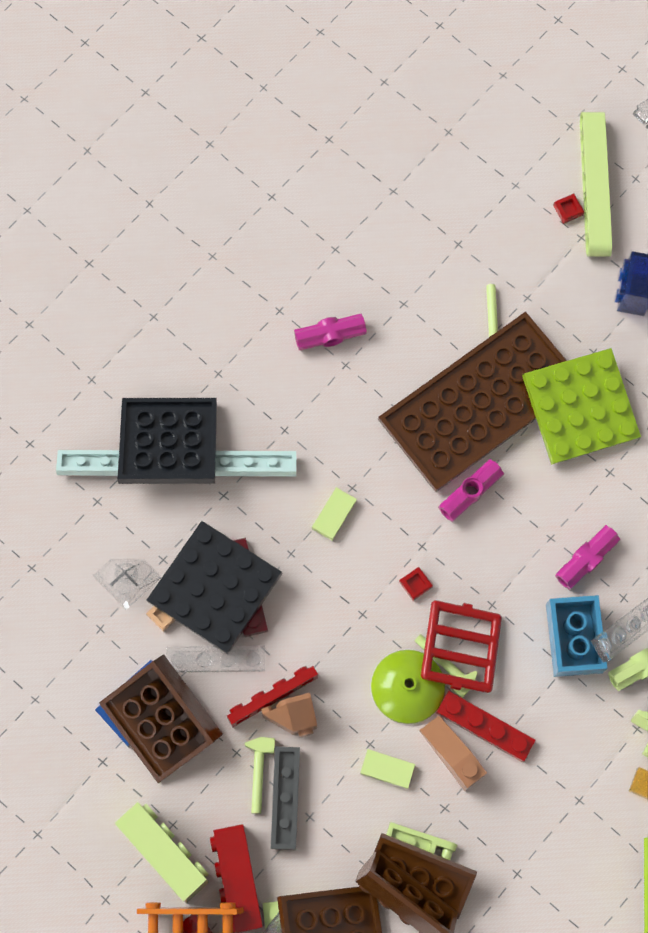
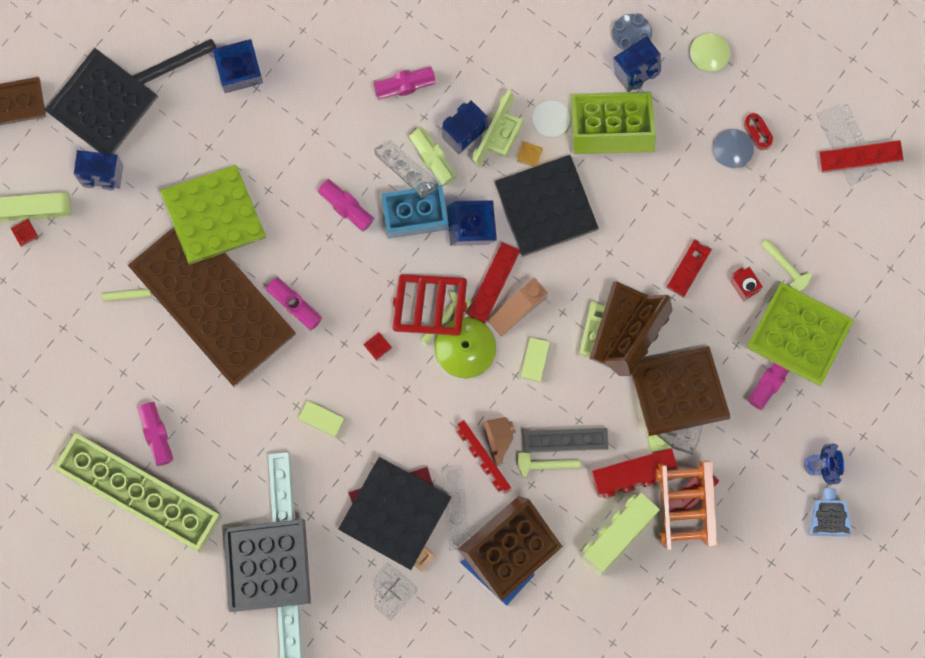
camera: 90 degrees left, 5 degrees up
(263, 308) = (137, 492): none -> yellowish green brick
(559, 702) = (471, 222): none -> clear blue brick
(579, 799) = (546, 205): none -> black plate

